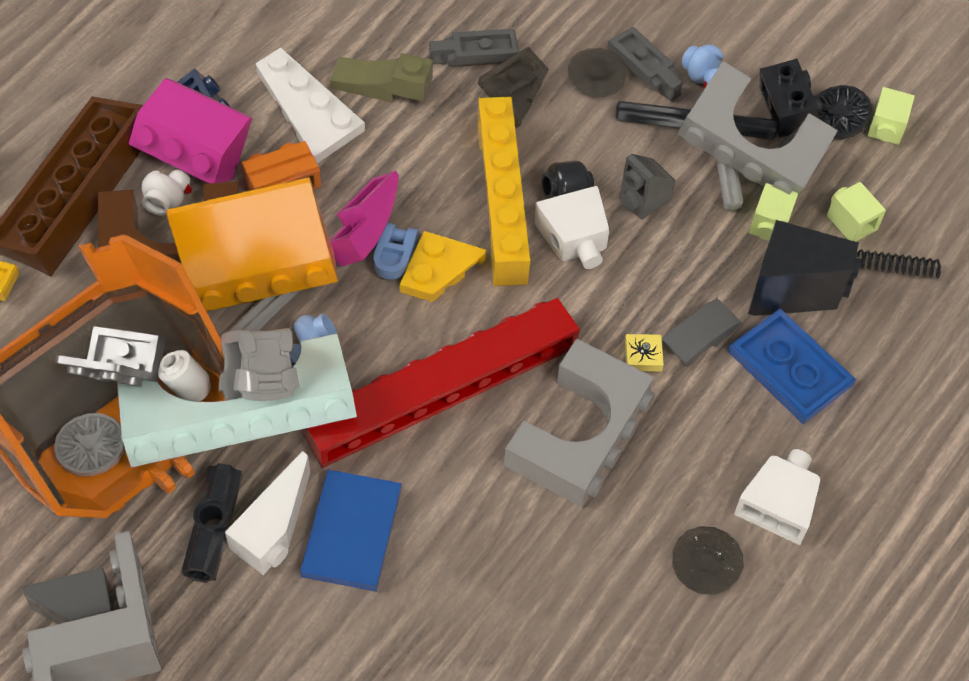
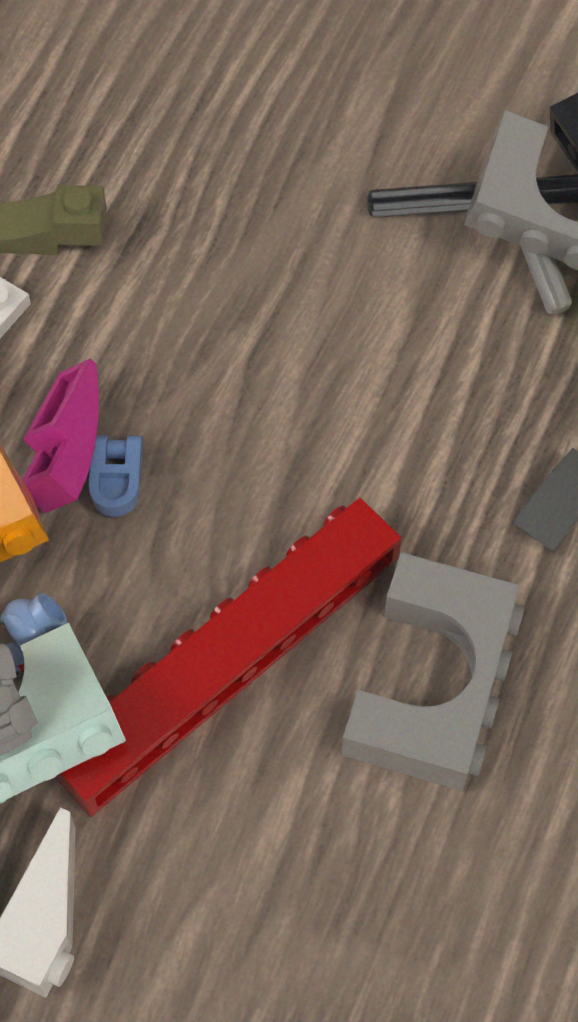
camera: 10 degrees left, 5 degrees up
(351, 530) = (154, 903): blue tile -> none
(437, 265) = (181, 480): yellow wing -> none
(474, 47) = (156, 153): dark grey hinge -> none
(504, 192) = (260, 392): yellow arch -> none
(516, 78) = (222, 195): clear smoke wing -> none
(565, 178) = (329, 324): black head -> none
(574, 225) = (355, 384): white torso -> none
(597, 72) = (329, 154): clear smoke wheel -> none
(644, 352) = (492, 547): light yellow tile -> none
(645, 185) = (437, 307): dark grey slope -> none
(647, 62) = (392, 126): dark grey hinge -> none
(702, 62) = (470, 115): light blue animal -> none

